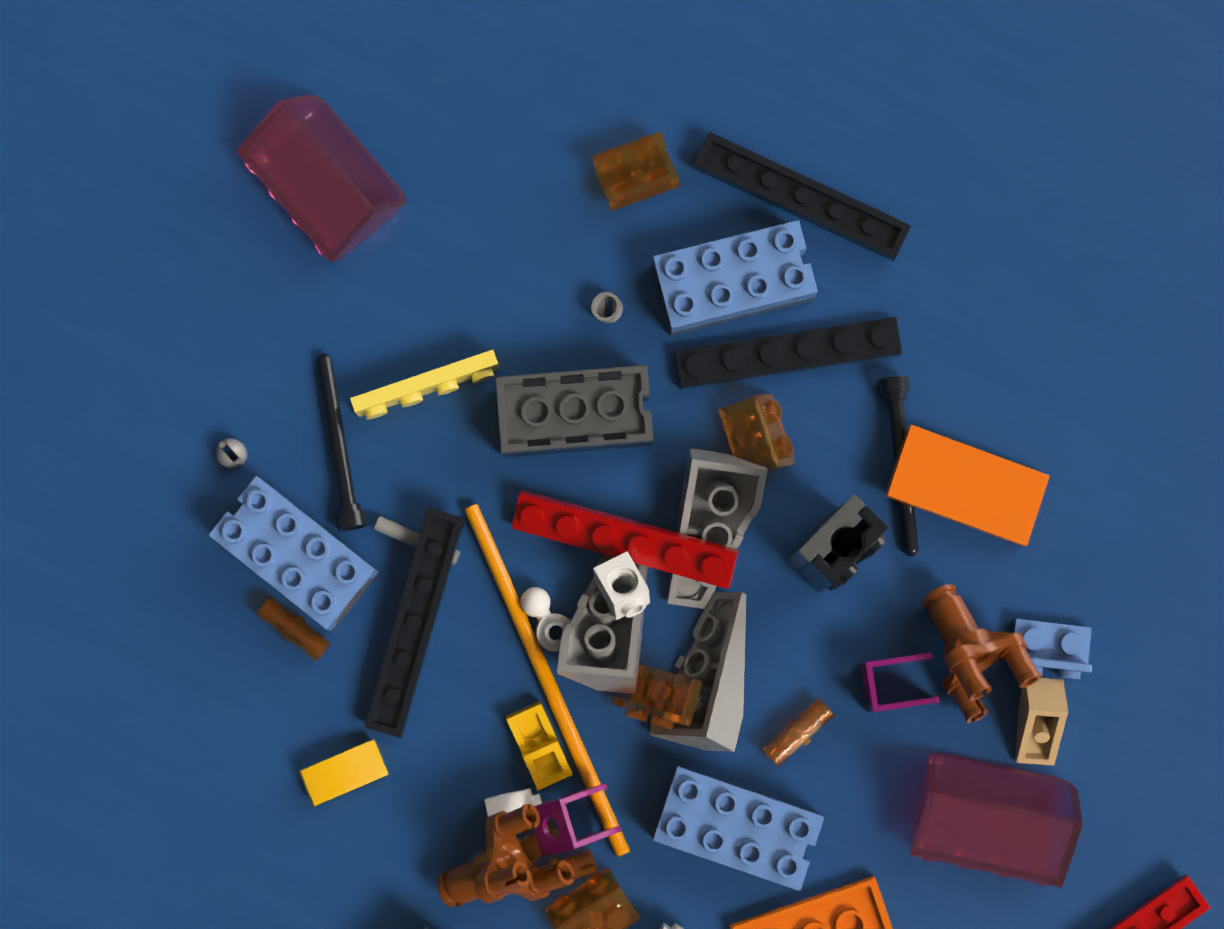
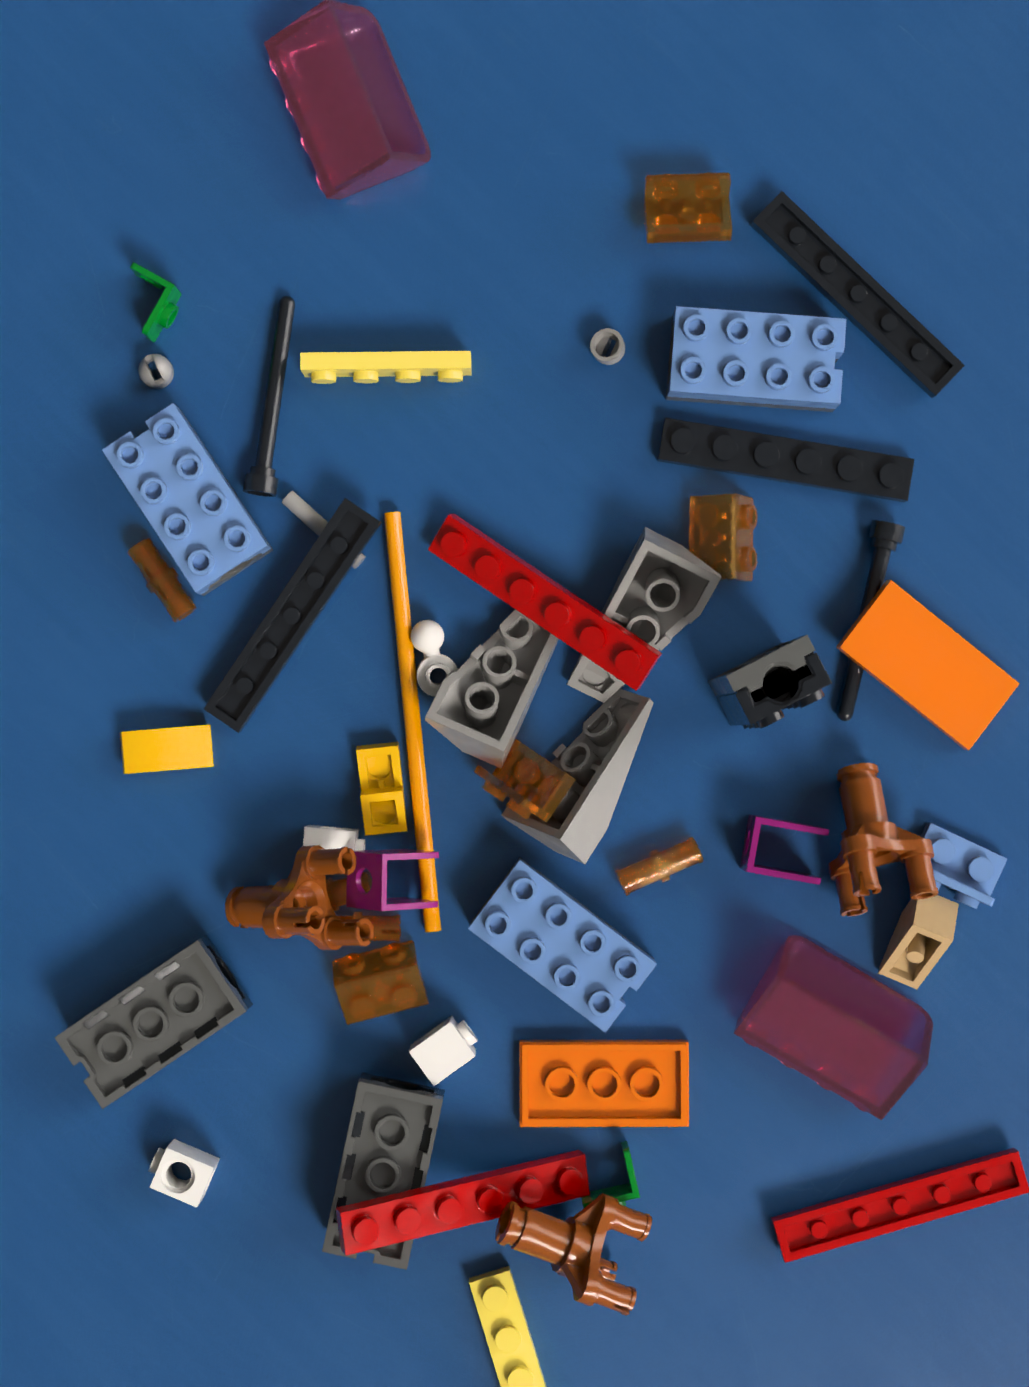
camera: 15 degrees right, 5 degrees up
(224, 398) = (165, 309): none -> green bracket
(574, 411) = (535, 446): dark grey piece -> none
(618, 572) = (526, 634): white brick -> none

